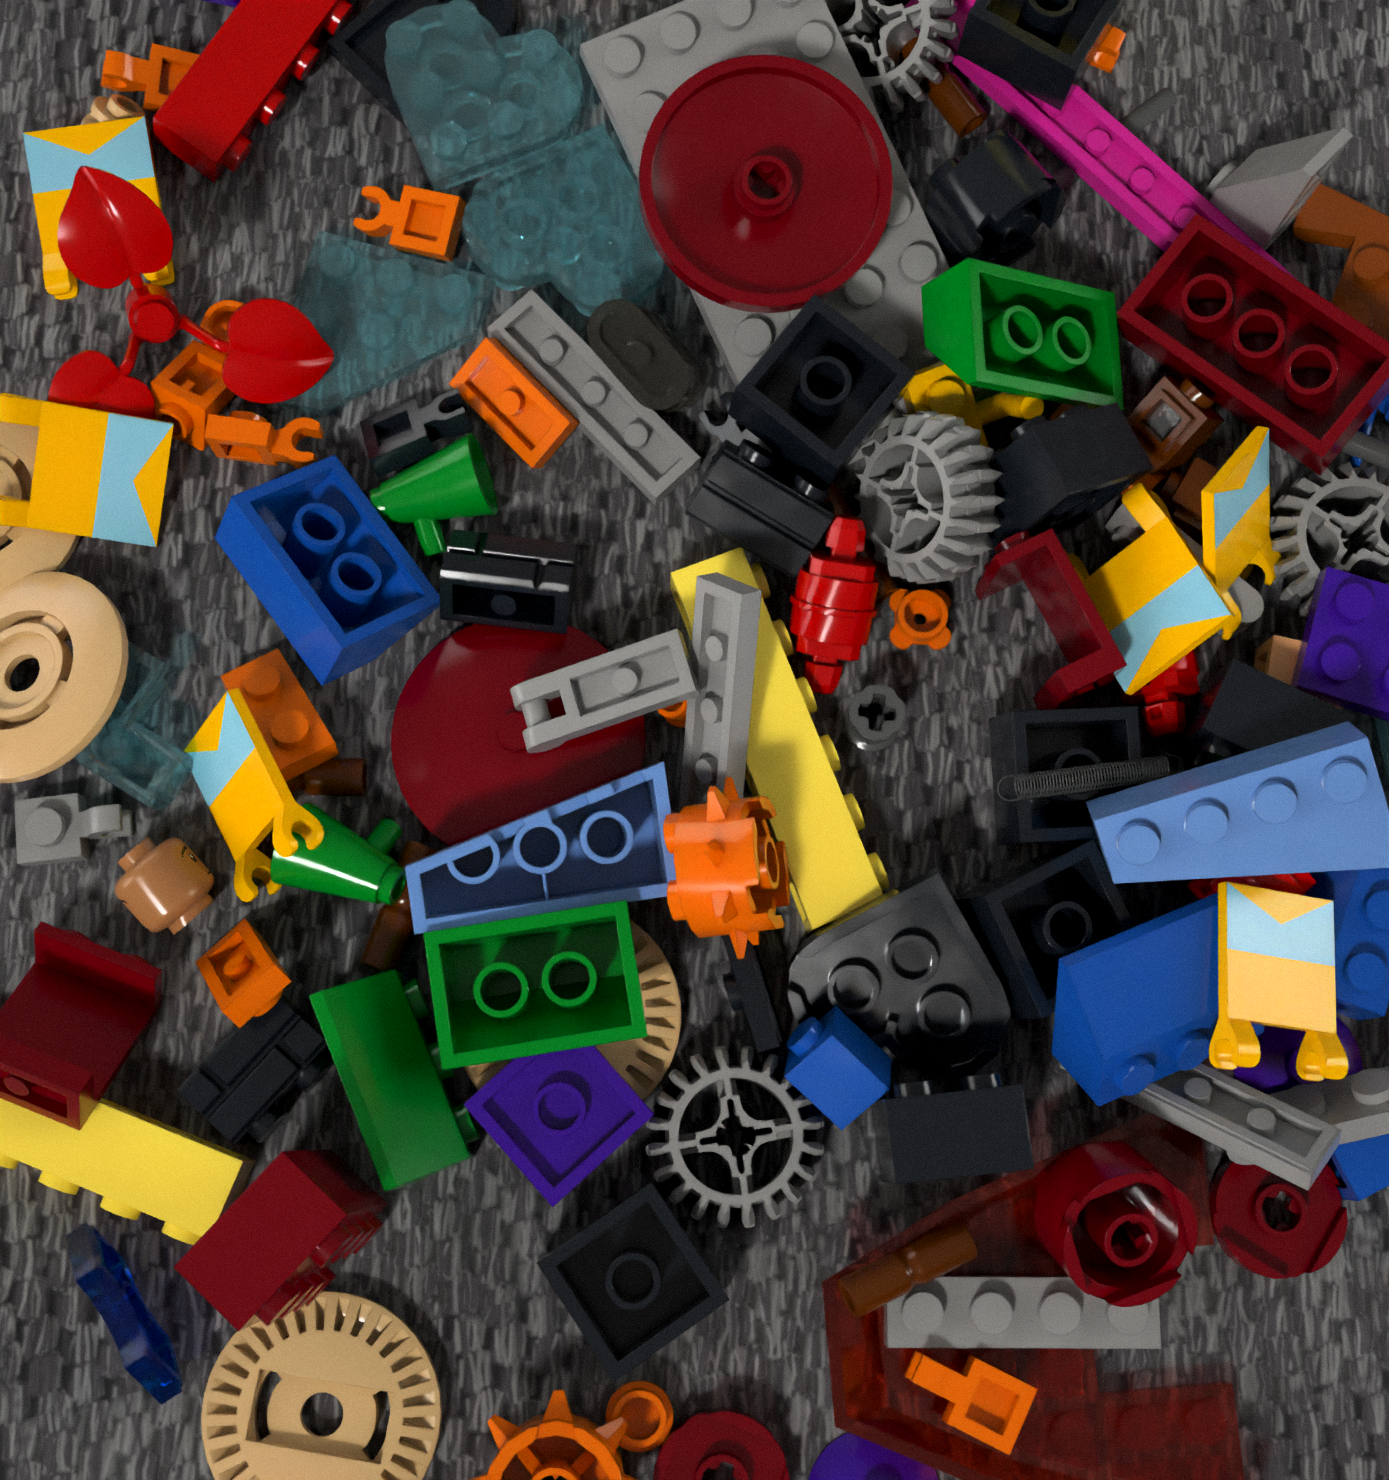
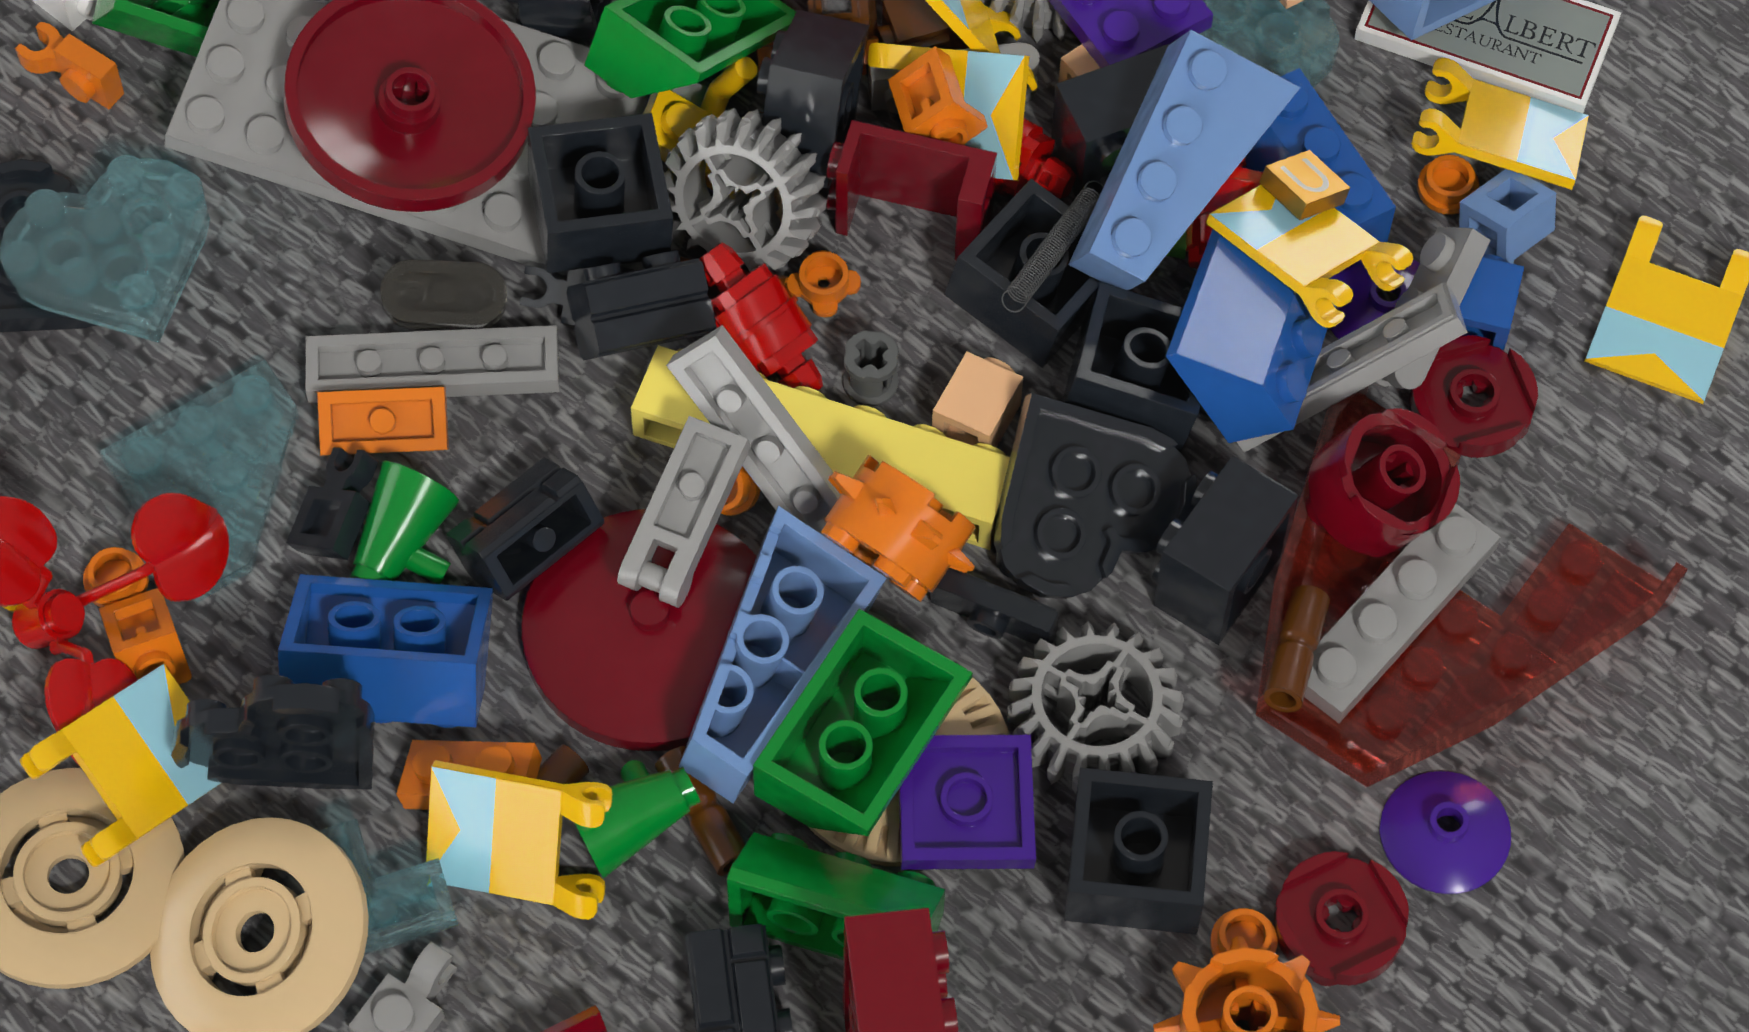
camera: 45 degrees left, 15 degrees down
(164, 884) = (525, 961): medium nougat head -> none
(170, 558) = (282, 736): none -> black plate
(243, 974) = (653, 944): orange plate -> none
(253, 439) = (229, 625): orange plate -> none
(420, 223) = (170, 372): orange plate -> none
(564, 221) = (274, 270): clear light blue plate -> none
(837, 1066) = (1108, 587): blue brick -> none
(916, 825) = (978, 401): none -> light nougat brick
(980, 1399) = (1432, 678): orange plate -> none
(1128, 575) = (932, 100): none -> orange bracket
(1330, 931) = (1304, 185): none -> tile

